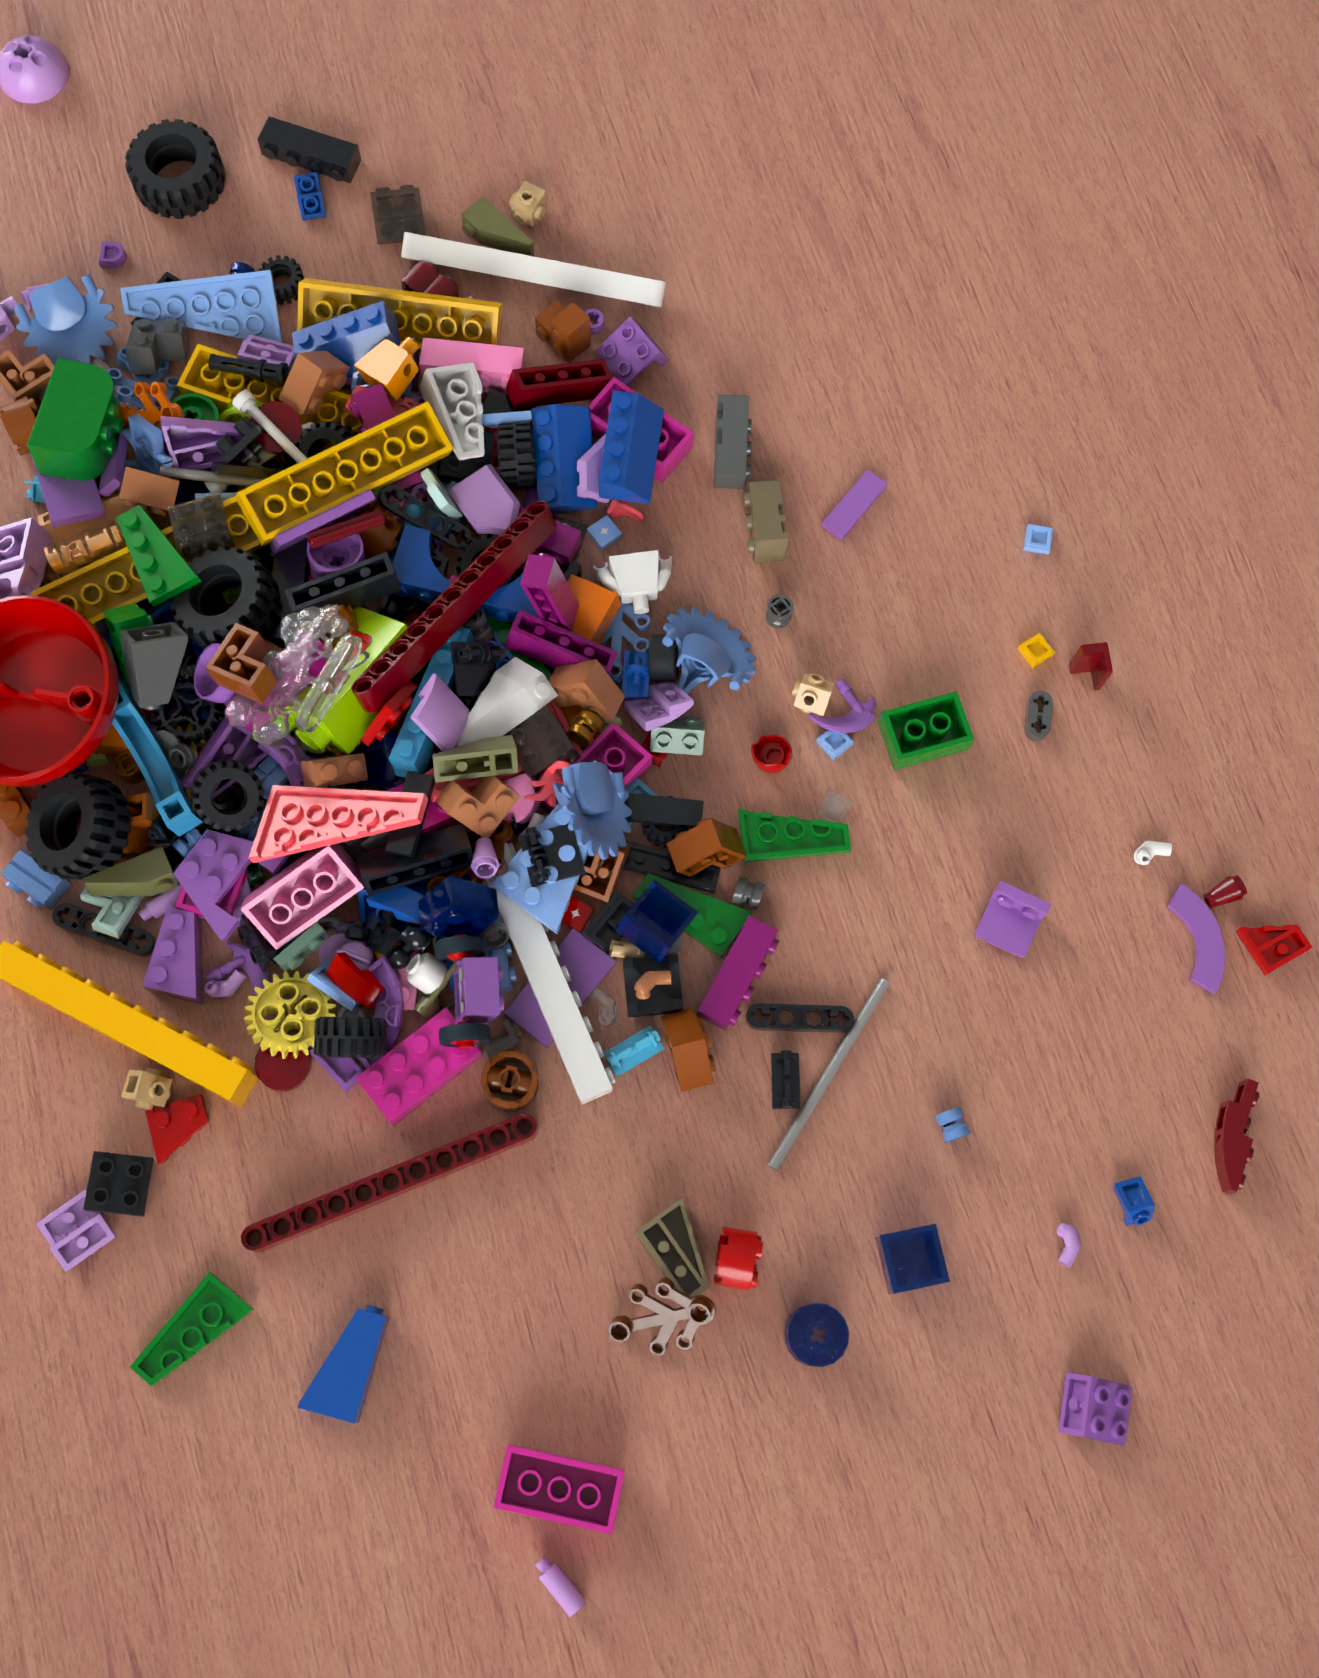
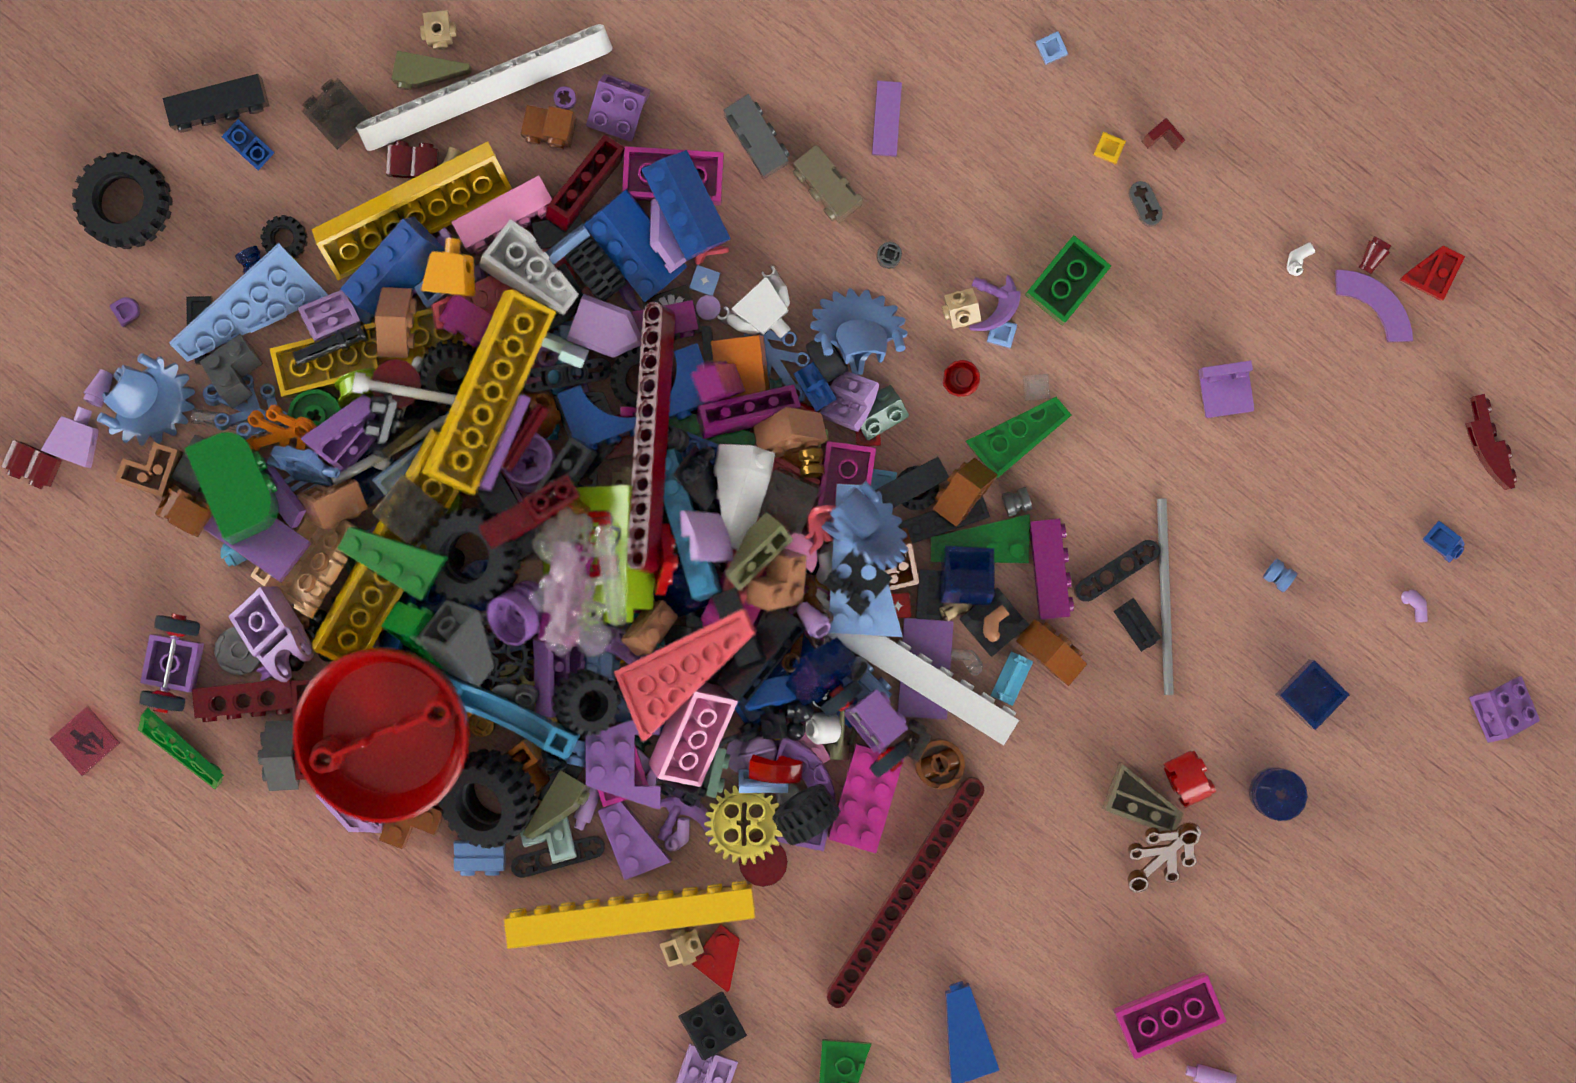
camera: 30 degrees left, 15 degrees up
(239, 664) = (535, 611): dark orange brick -> none
(293, 588) = (530, 512): none -> dark red slope
(591, 555) = (708, 307): none -> lavender tile

